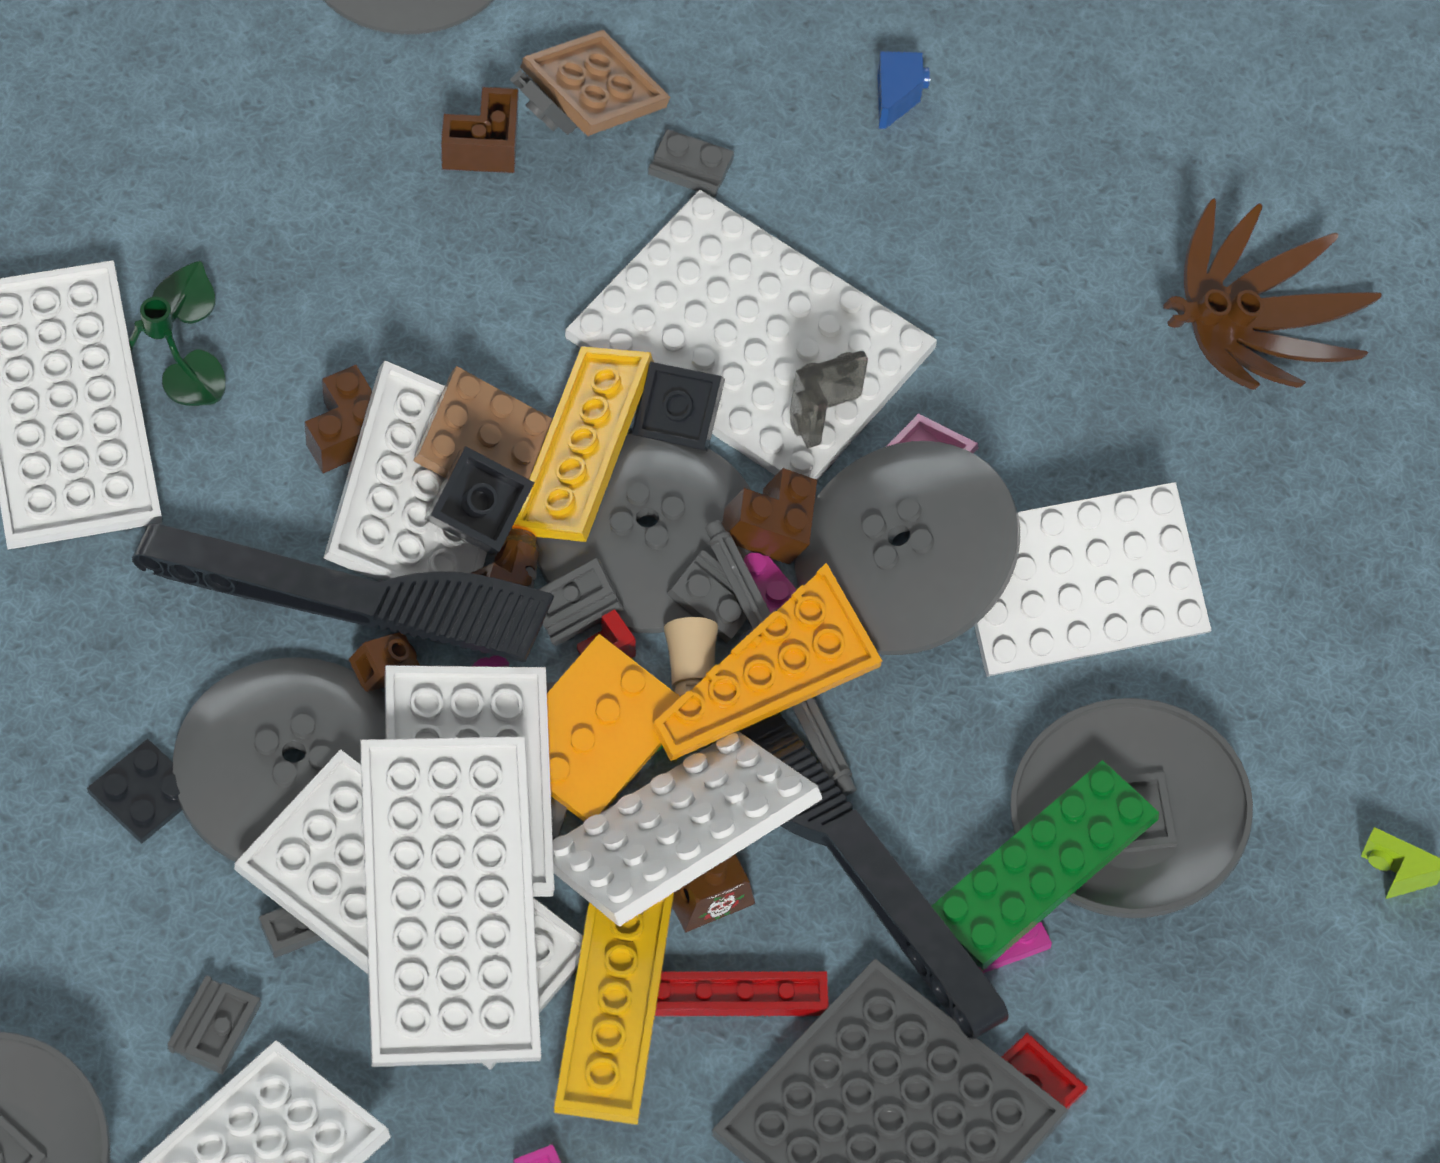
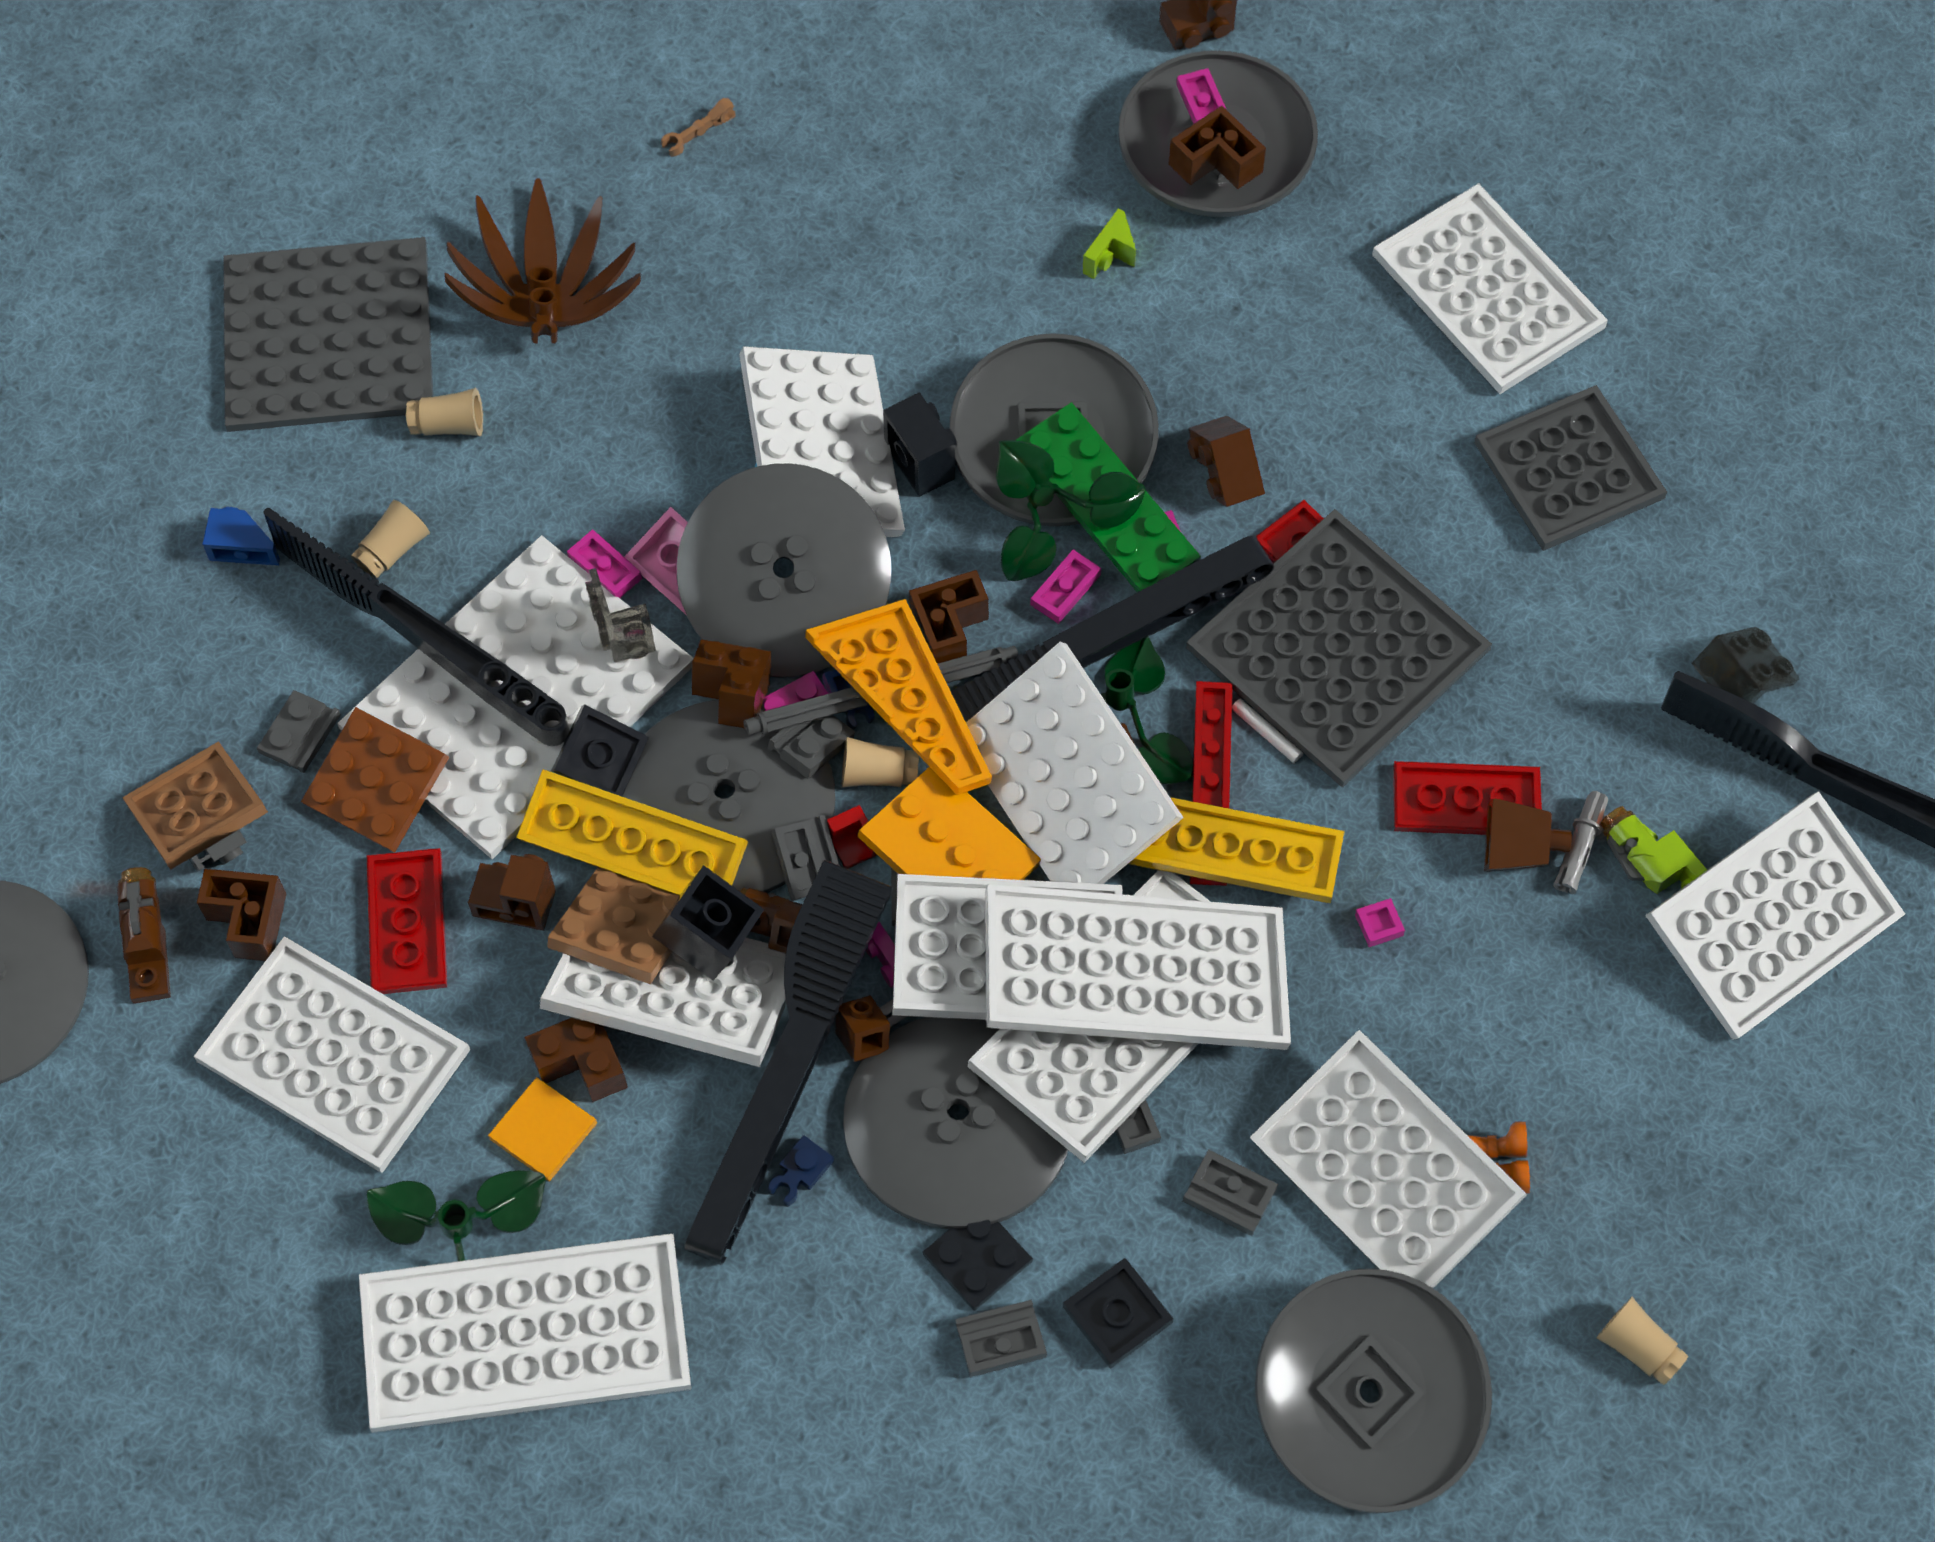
camera: 80 degrees left, 5 degrees up
(53, 813) = (1001, 1338): none -> dark grey plate
(80, 920) = (1117, 1313): none -> black plate
(237, 629) = (802, 1166): none -> dark blue plate
(273, 403) = (542, 1129): none -> light orange tile
(345, 225) = (332, 1054): none -> white plate
(455, 60) = (143, 936): none -> reddish brown plate
(491, 272) = (406, 921): none -> red tile
(518, 350) = (514, 892): none -> reddish brown brick
(636, 224) = (375, 779): none -> dark orange plate
(776, 1052) = (1267, 731): none -> white piece
(785, 250) = (439, 642): none -> black piece
(838, 916) = (1142, 671): none -> dark green plant
(879, 707) = (945, 609): none -> reddish brown brick
(908, 397) = (612, 568): none -> dark pink plate
(912, 208) = (389, 539): none -> tan plant
(936, 837) = (1065, 586): none -> dark pink plate
(1022, 733) = (1025, 472): none -> dark green plant
(1068, 244) = (446, 414): none -> tan plant
(1089, 668) = (920, 443): none -> black brick
(1116, 988) = (1230, 458): none -> reddish brown brick
(1156, 137) = (326, 333): none -> dark grey plate

